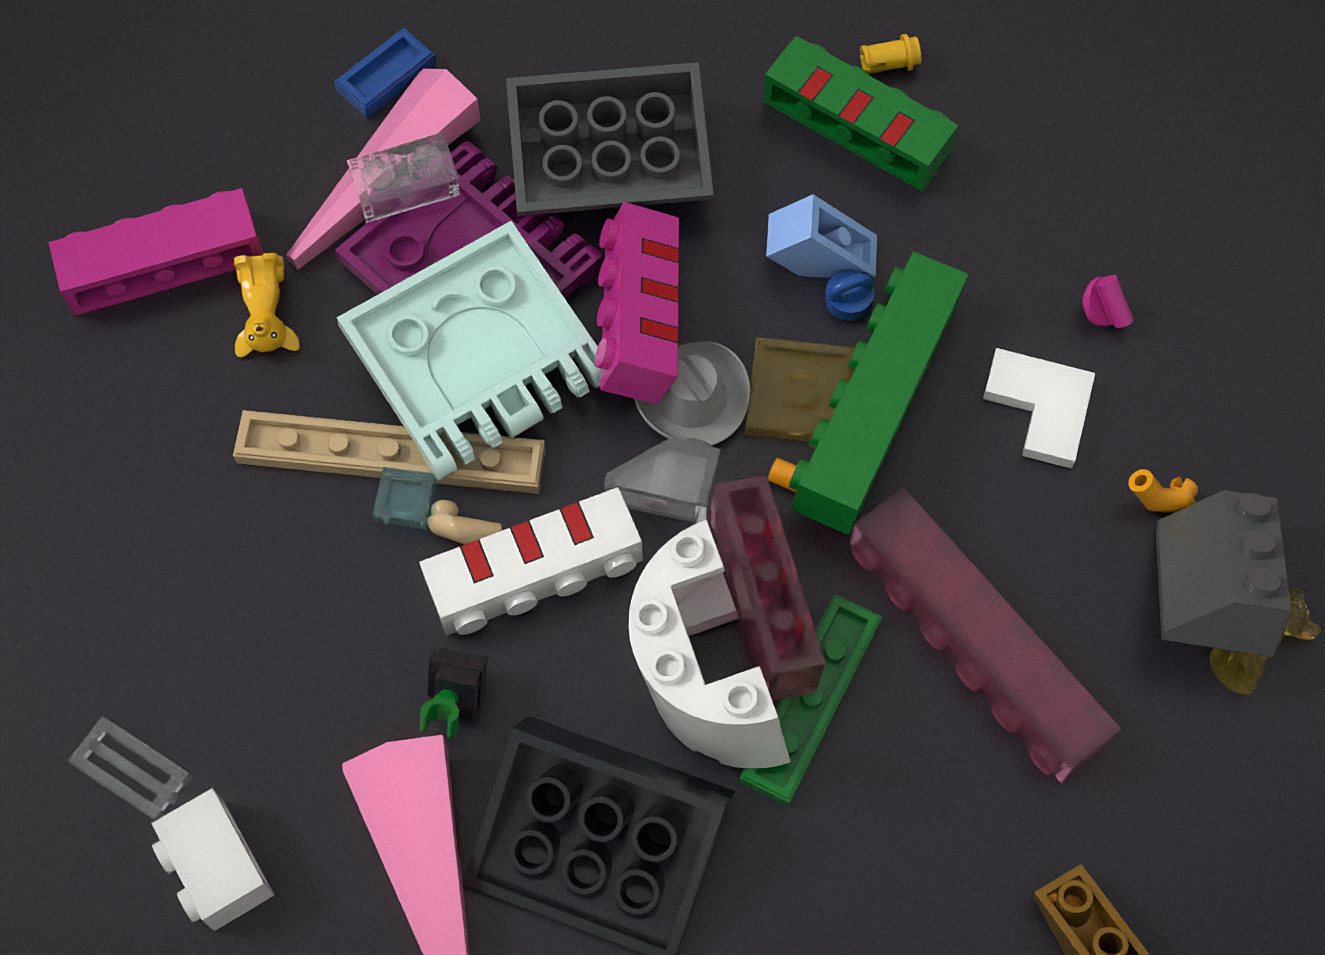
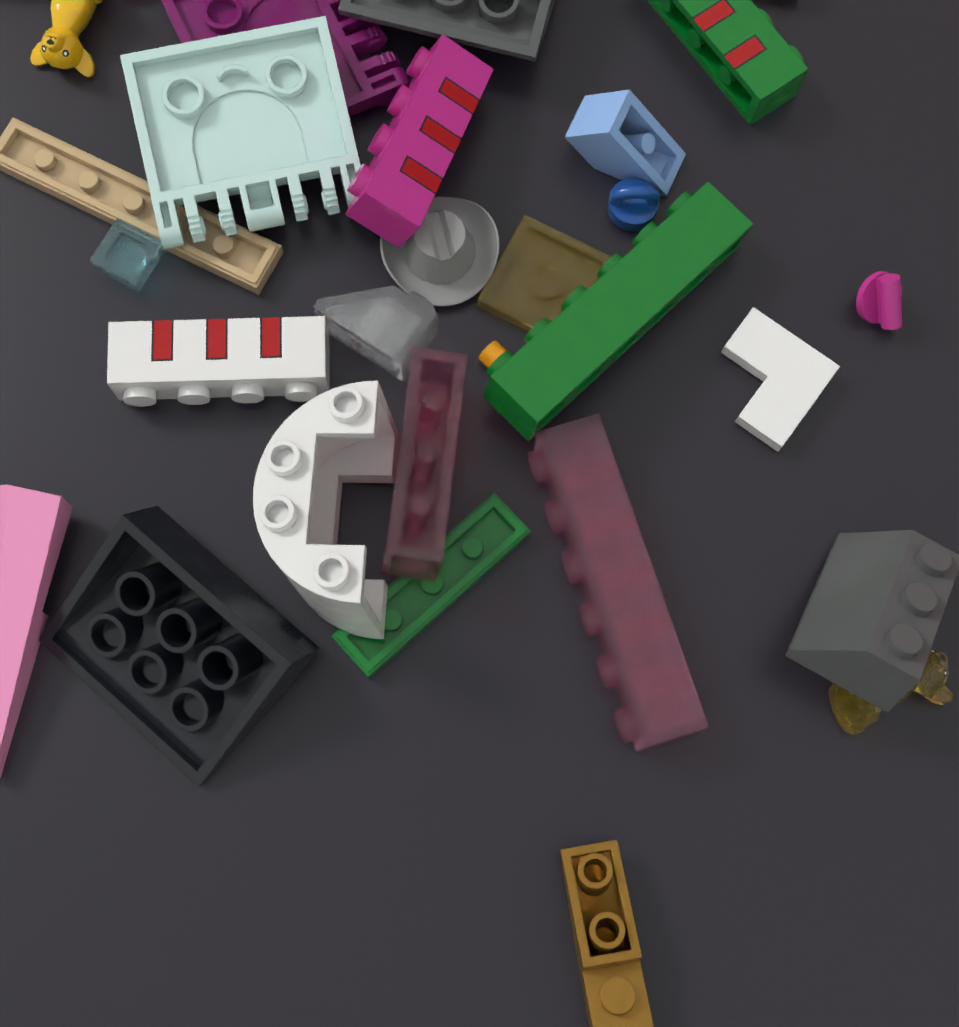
camera: 15 degrees right, 10 degrees up
(447, 524) = (159, 295): tan arm -> none
(457, 686) = (102, 455): black piece -> none
(1160, 498) = (850, 513): light orange arm -> none

